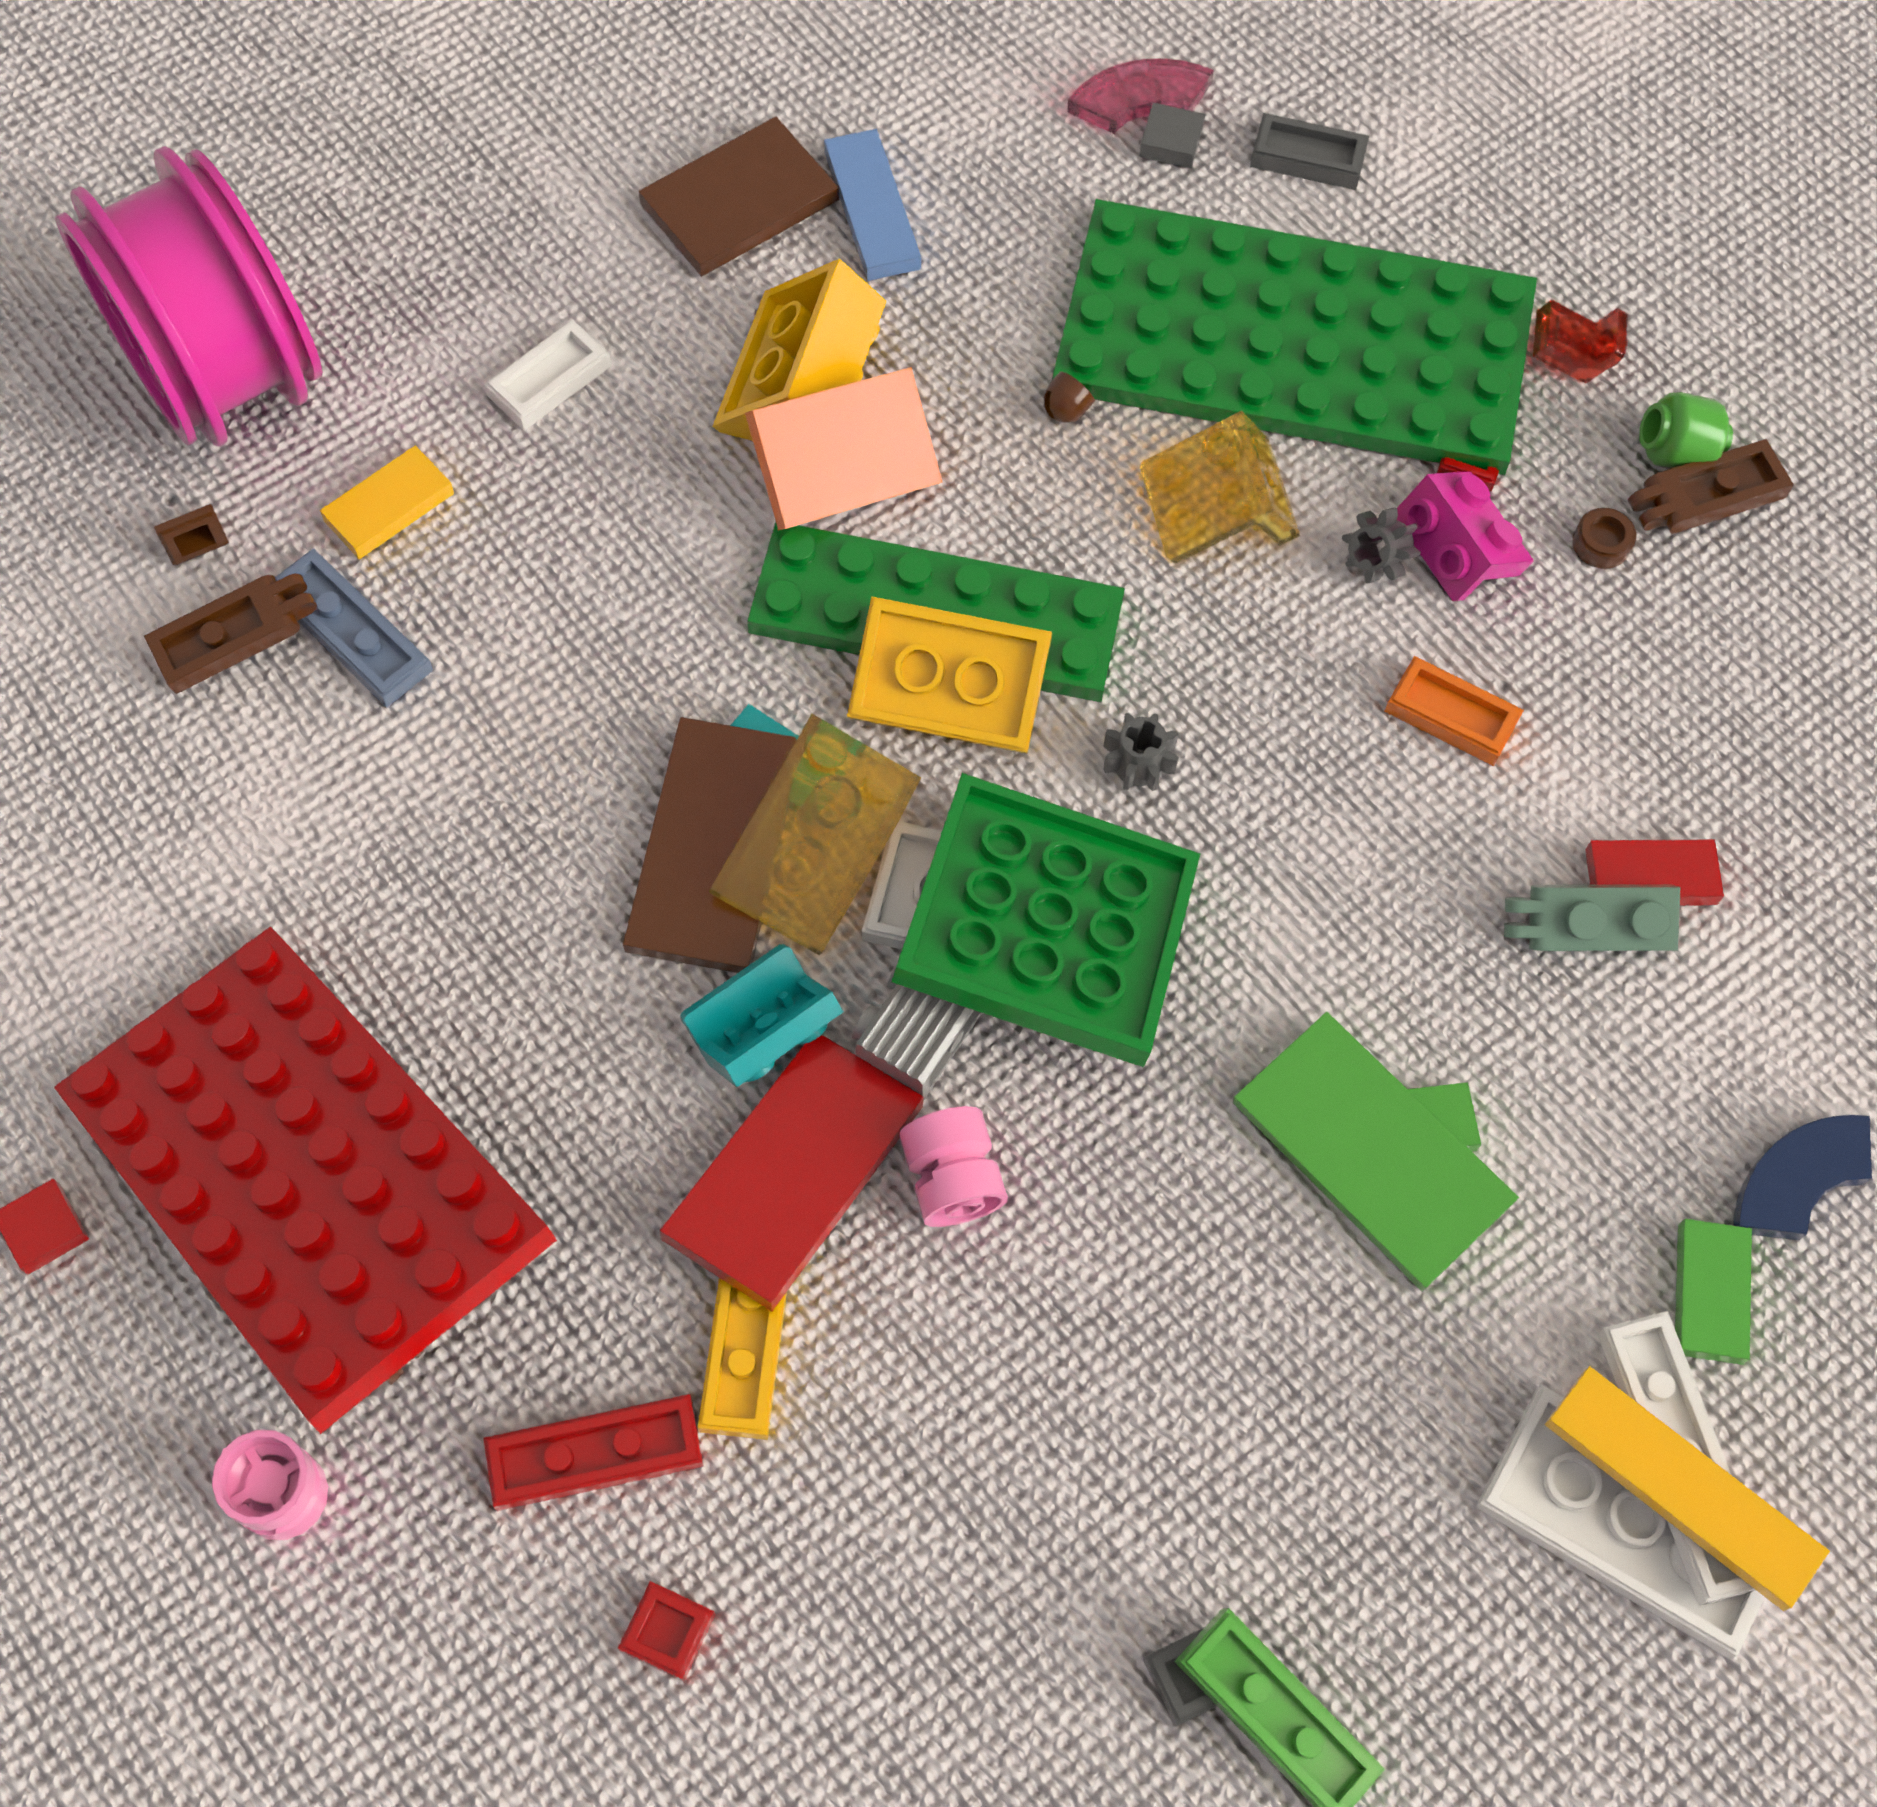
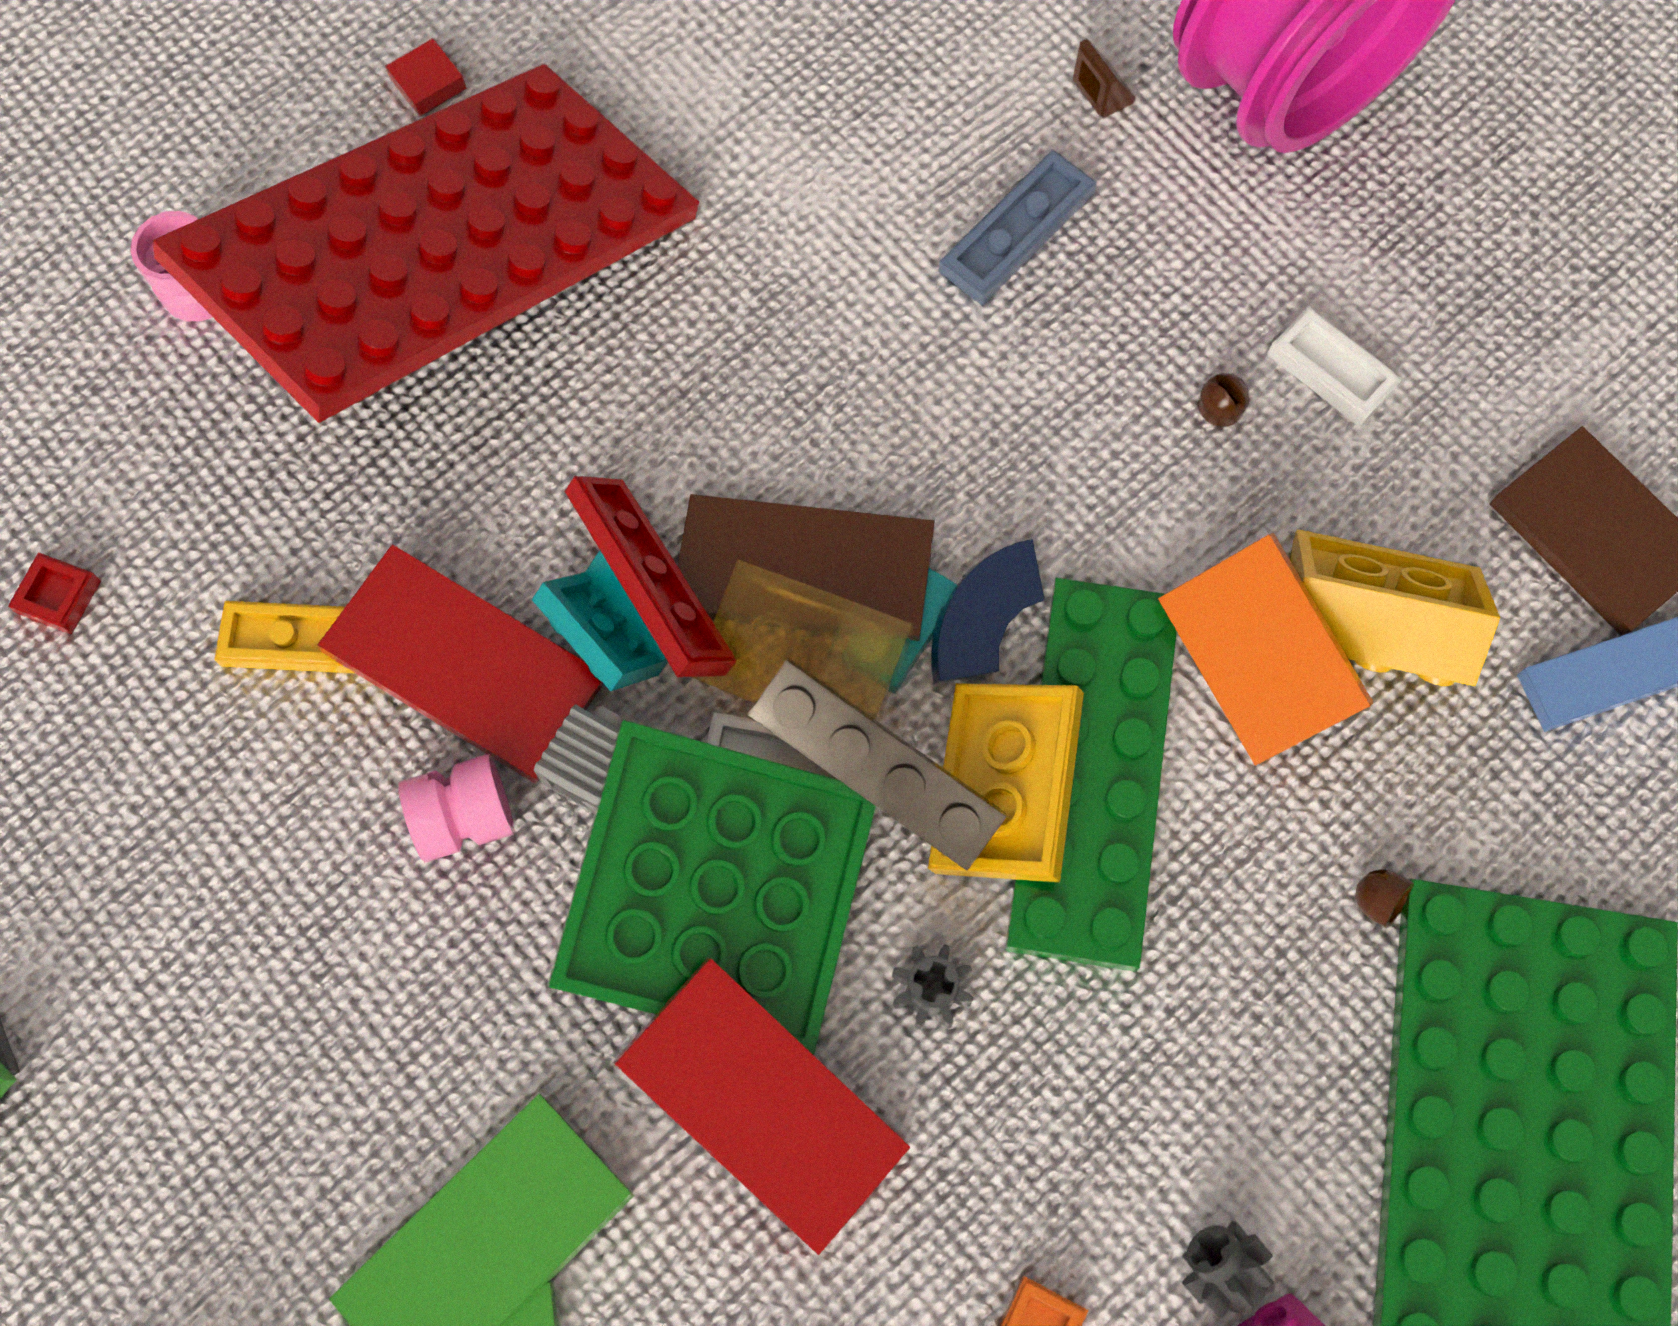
camera: 90 degrees right, 5 degrees up
(229, 629) = (995, 123): reddish brown hinge -> none
(387, 502) = (1160, 240): yellow tile -> none
(577, 468) = (1217, 405): none -> reddish brown hinge
(592, 1452) = (213, 520): red tile -> none
(717, 974) = (650, 577): none -> red tile
(758, 672) = (980, 609): none -> dark blue tile
(940, 763) = (877, 764): none -> plate
(1217, 489) = (1285, 1078): clear yellow bracket -> none
(1247, 893) = (762, 1105): none -> red tile

